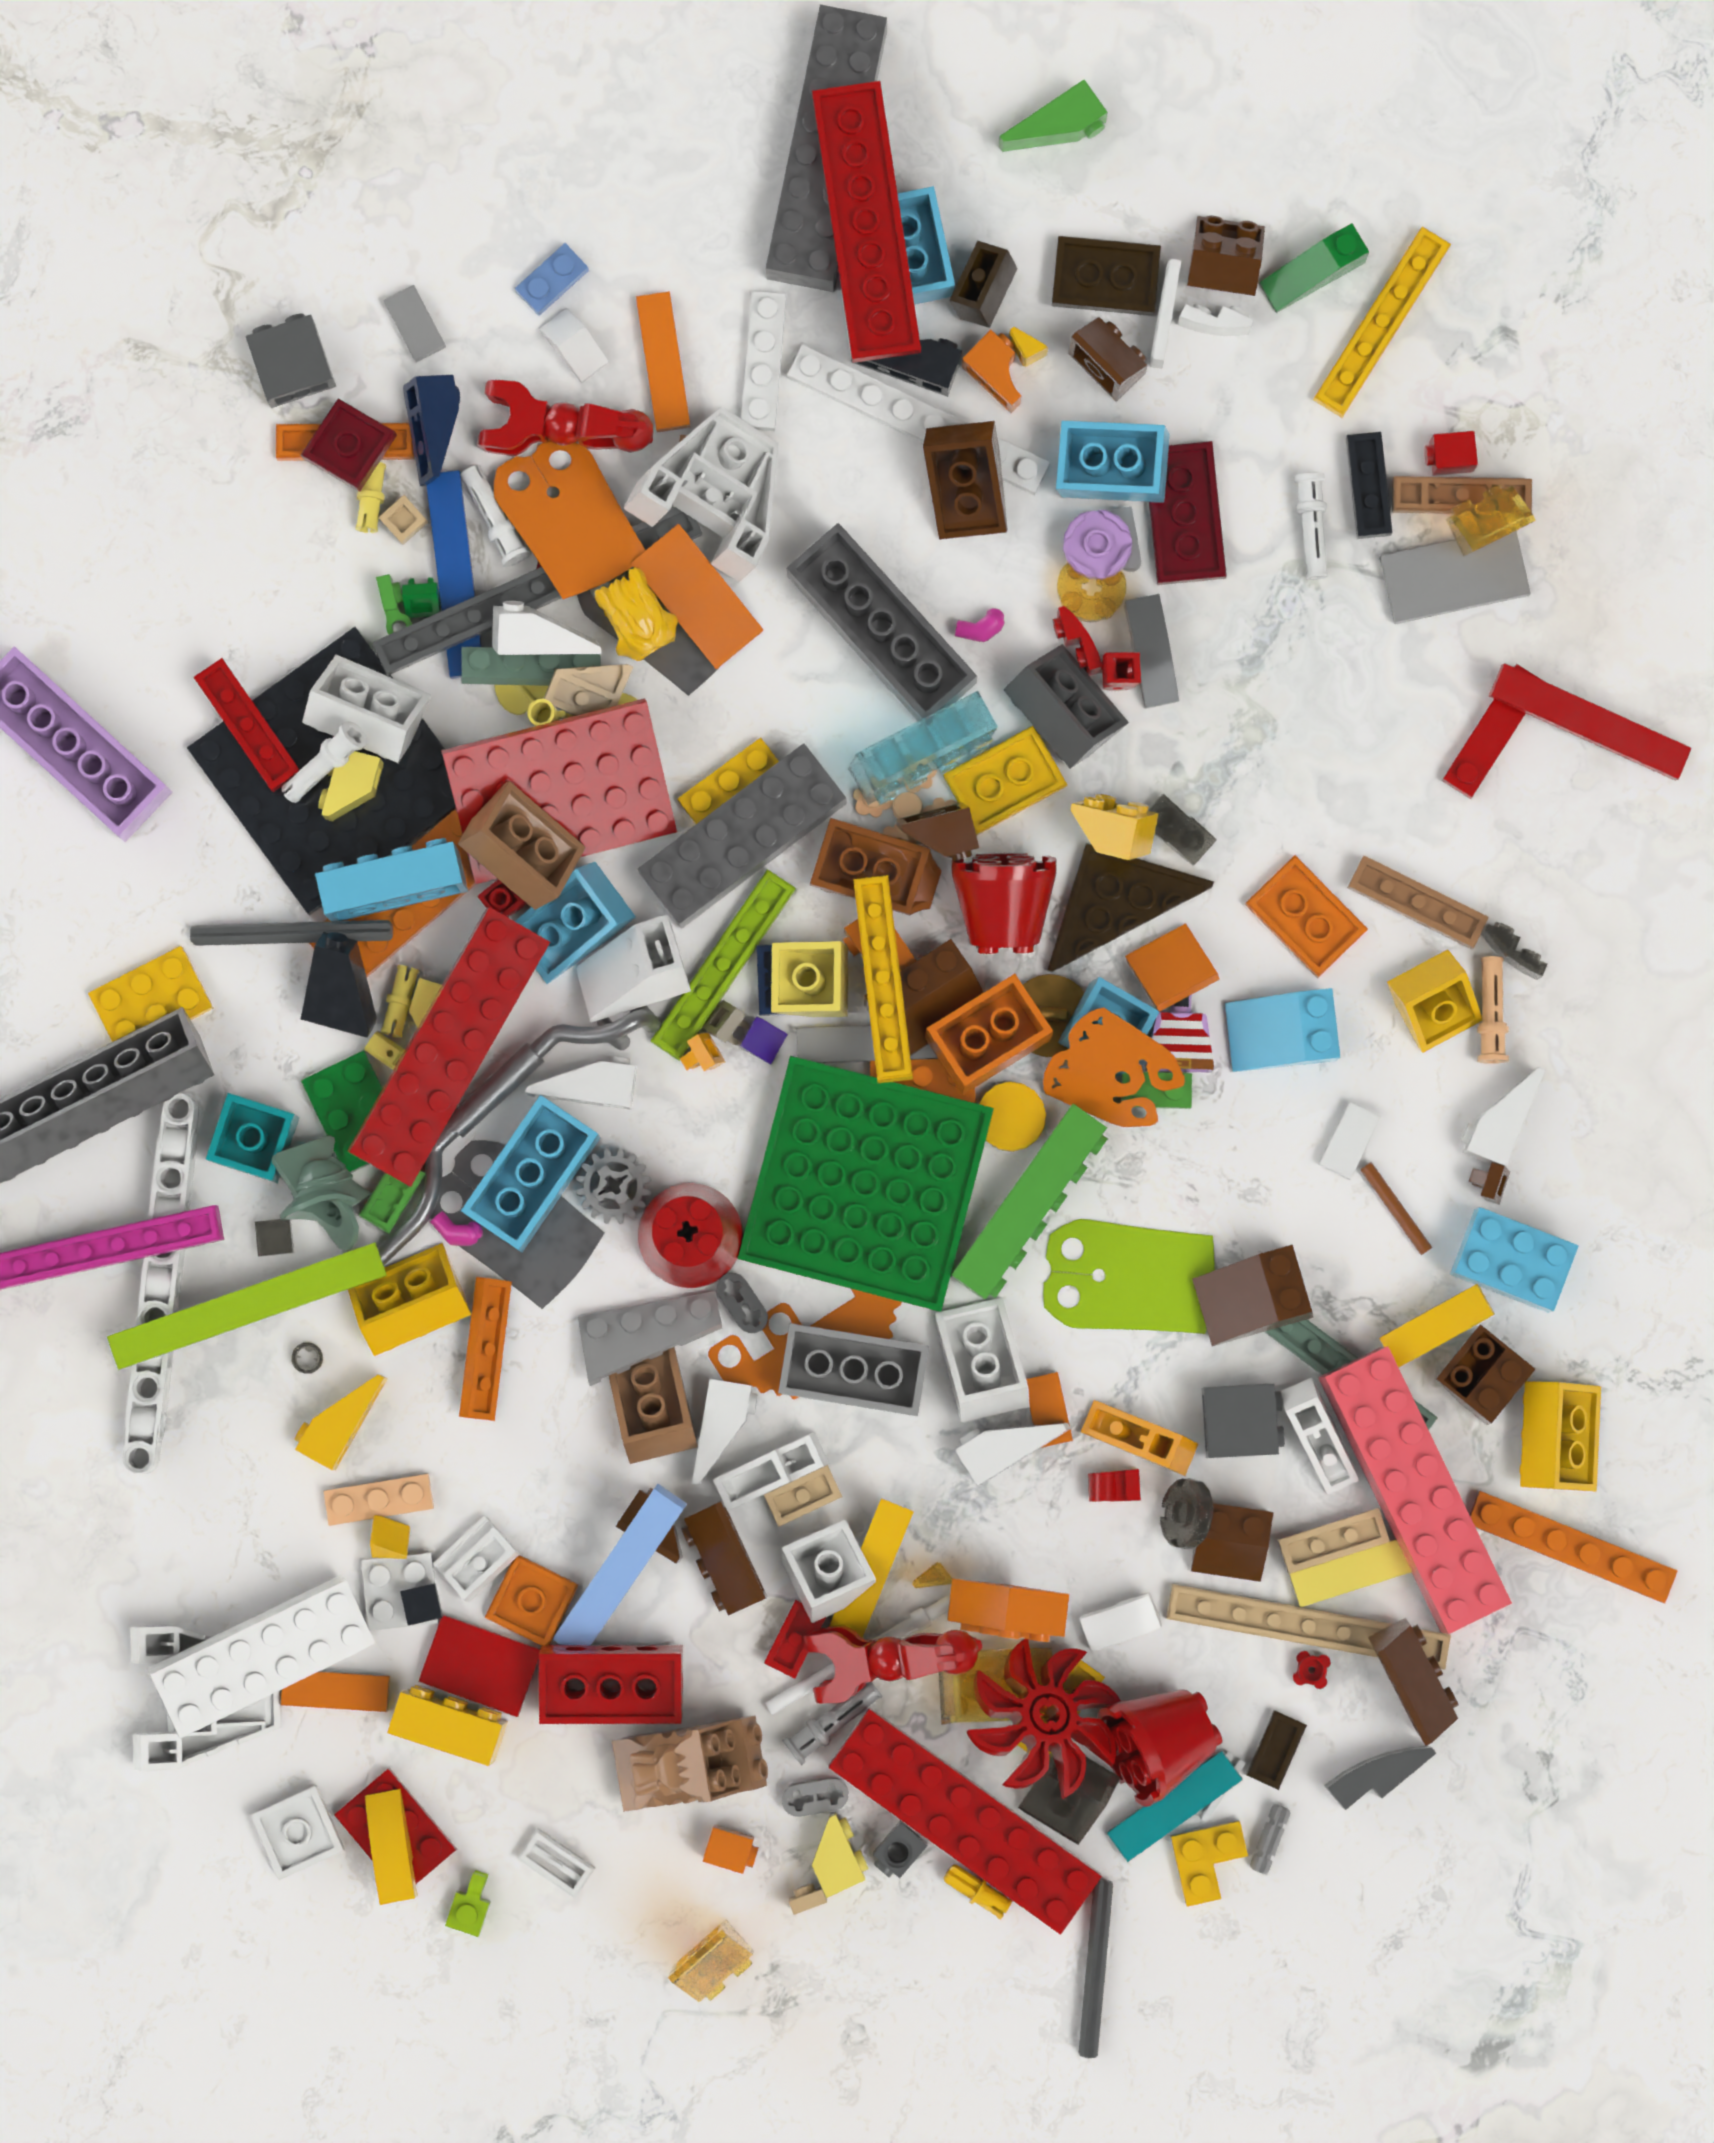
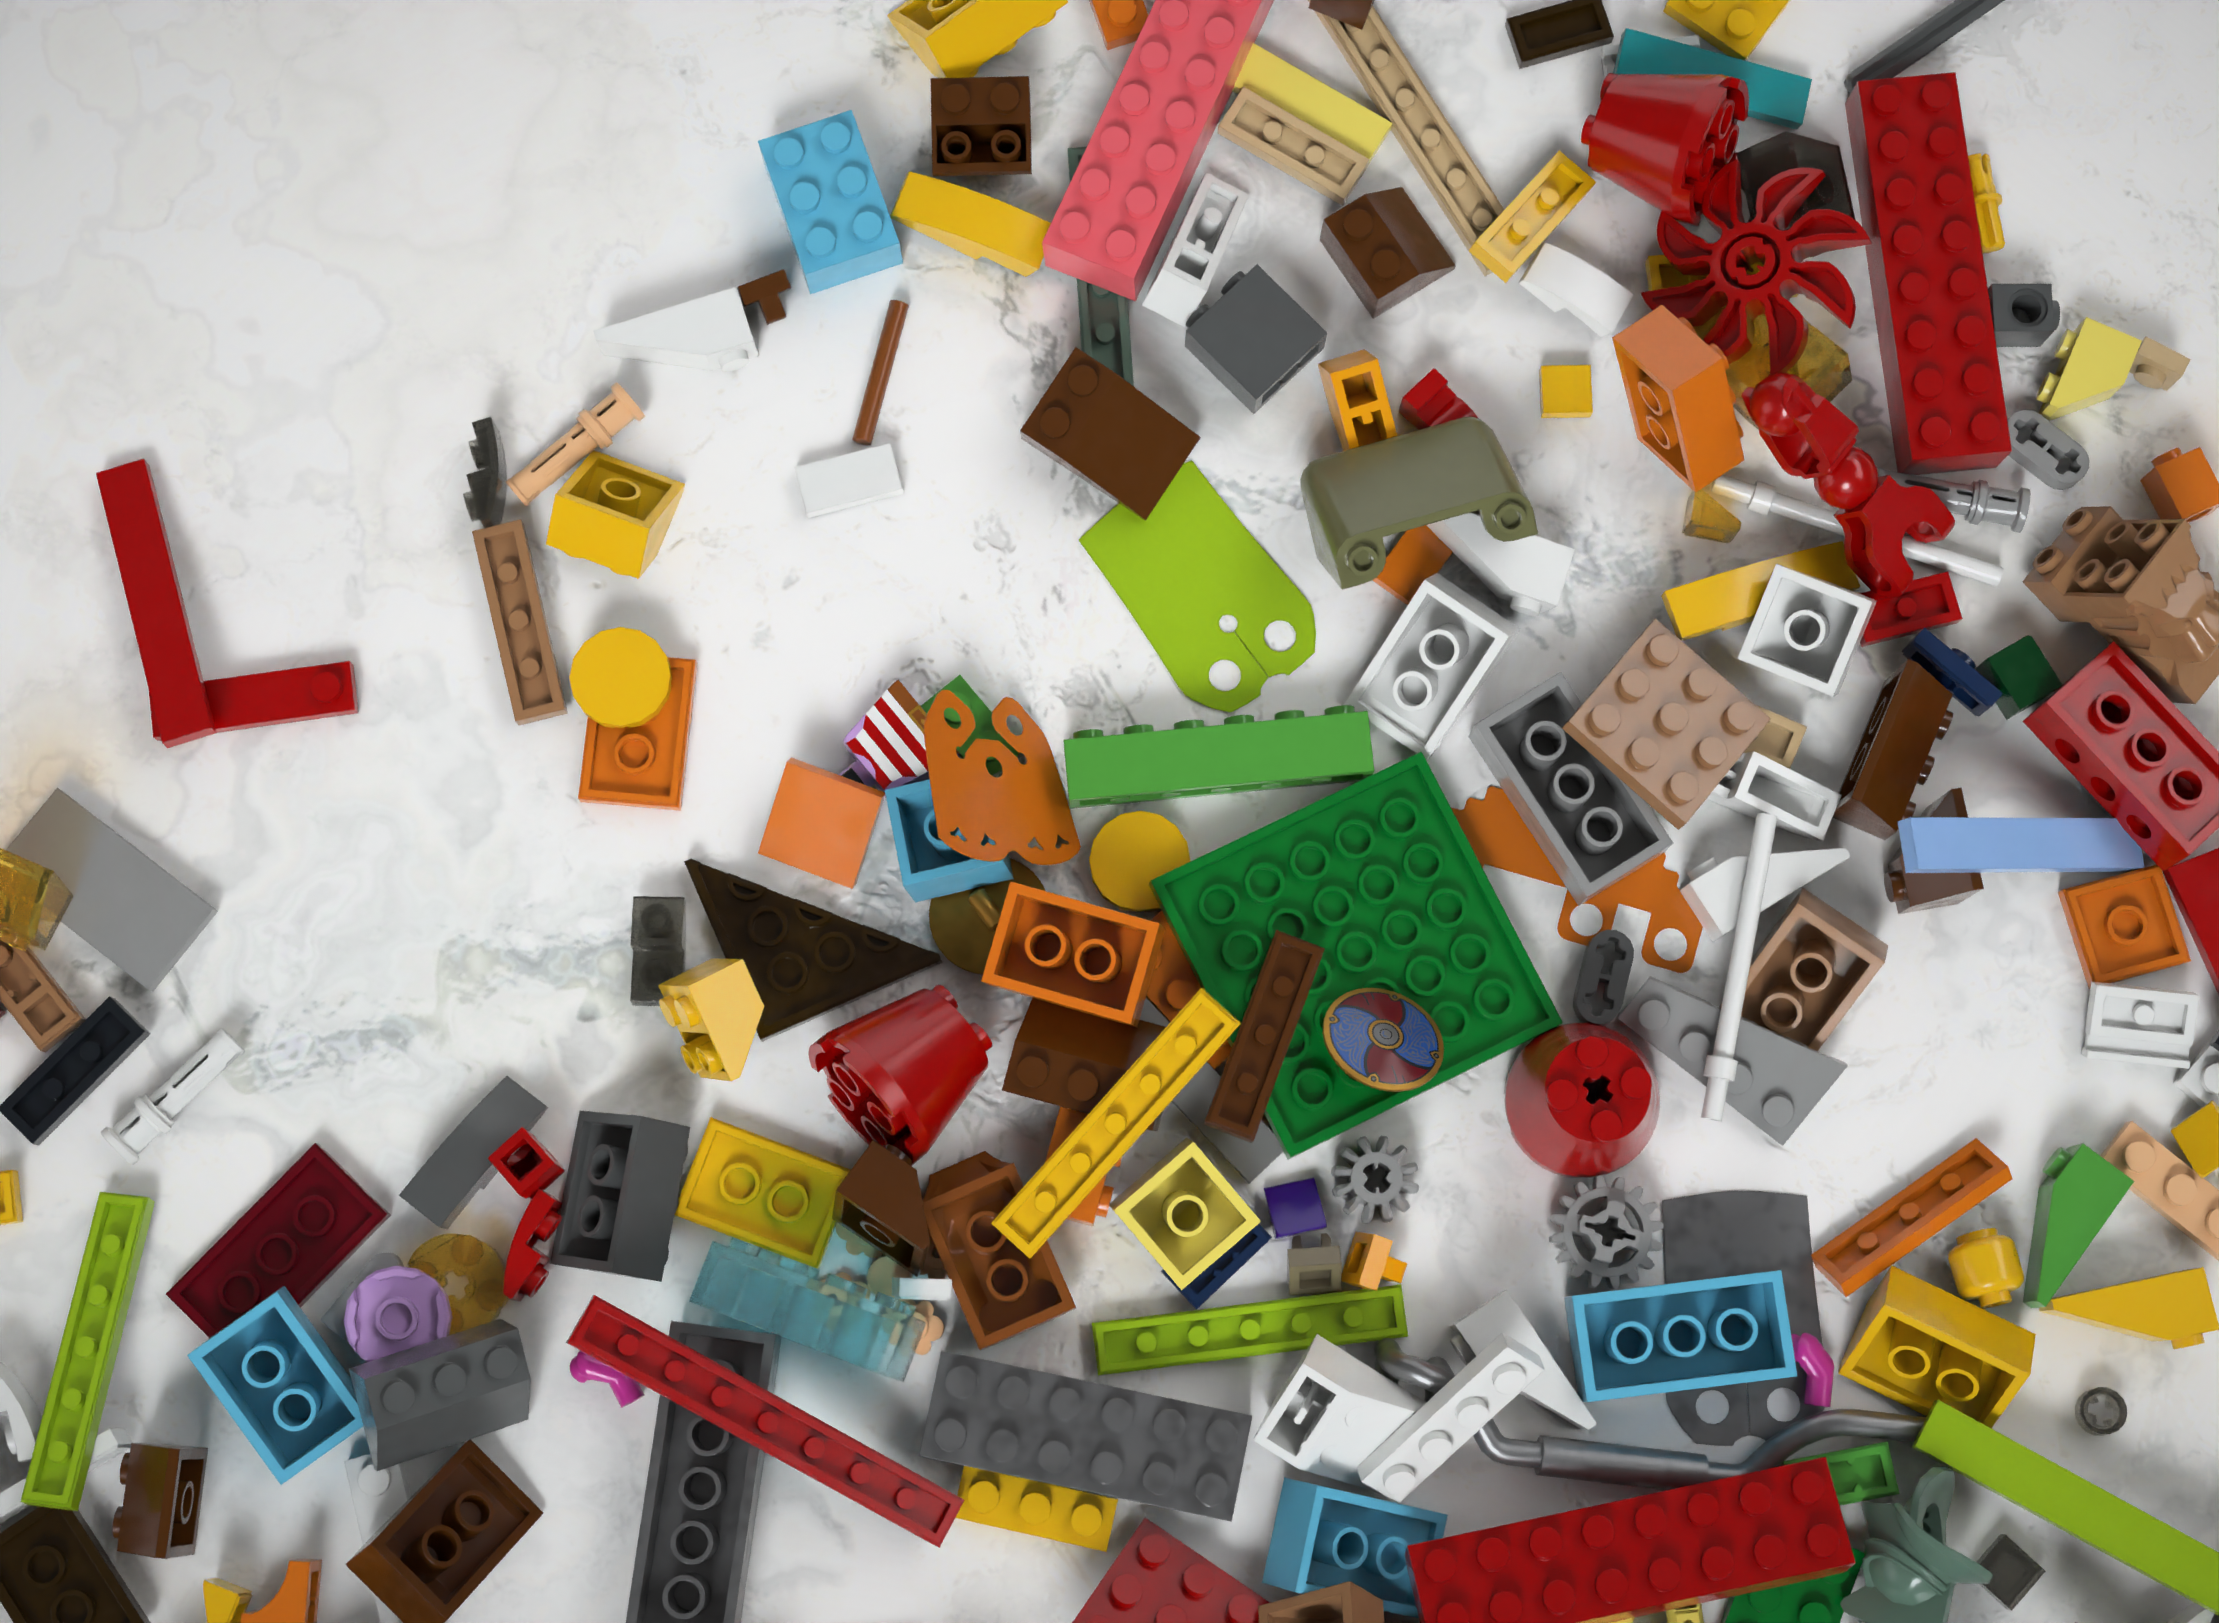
camera: 135 degrees left, 5 degrees down
(417, 1436) = (2069, 1214): none -> bright green slope
(427, 1363) = (1985, 1267): none -> yellow head
(592, 1018) = (1450, 1418): none -> white plate
(645, 1316) = (1720, 1066): none -> white bar
(707, 1664) = (2020, 675): none -> dark green panel
(734, 1100) = (1392, 1180): none -> light grey gear
(740, 1633) = (1954, 671): none -> dark blue plate
(808, 1152) = (1383, 1039): none -> shield
(843, 1447) = (1666, 724): none -> medium nougat plate
(863, 1095) = (1263, 1036): none -> reddish brown tile
(886, 680) = (765, 1421): none -> red tile
(886, 815) = (921, 1288): none -> white tile
(1040, 536) = (442, 1392): none -> dark grey slope
(1069, 1567) = (1565, 391): none -> yellow tile
(1082, 1425) = (1408, 484): none -> olive windscreen
(1180, 1632) = (1532, 216): none -> yellow plate
(1186, 1513) = (1403, 309): clear smoke tile -> none
(1214, 381) = (88, 1352): none -> lime tile
(1282, 1030) = (788, 646): medium azure slope -> none
(1317, 1678) = (1445, 47): red plate -> none
(1340, 928) = (621, 678): none -> yellow tile

